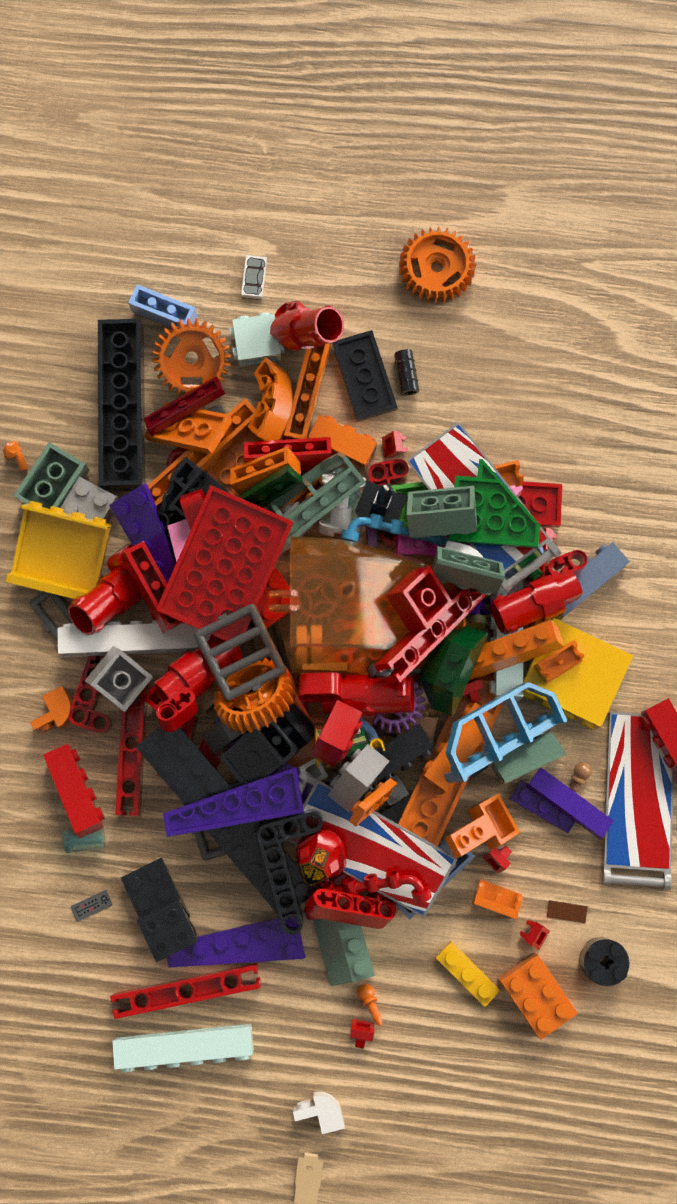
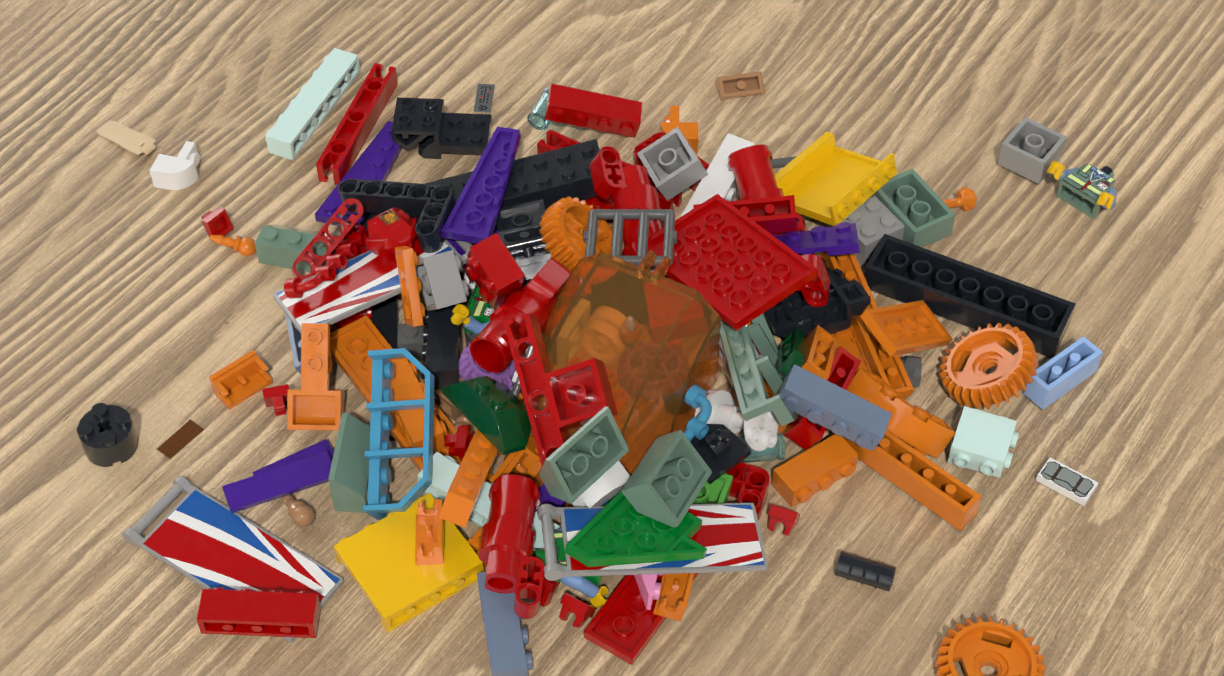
camera: 120 degrees right, 30 degrees down
(184, 406) = (934, 338): dark red tile -> none
(305, 327) = (966, 458): red piece -> none
(310, 435) = (834, 408): none -> sand blue brick
(364, 376) = (885, 529): black plate -> none
(467, 973) = (195, 328): yellow plate -> none
(537, 934) = (181, 394): red tile -> none
(537, 996) = (126, 366): orange brick -> none

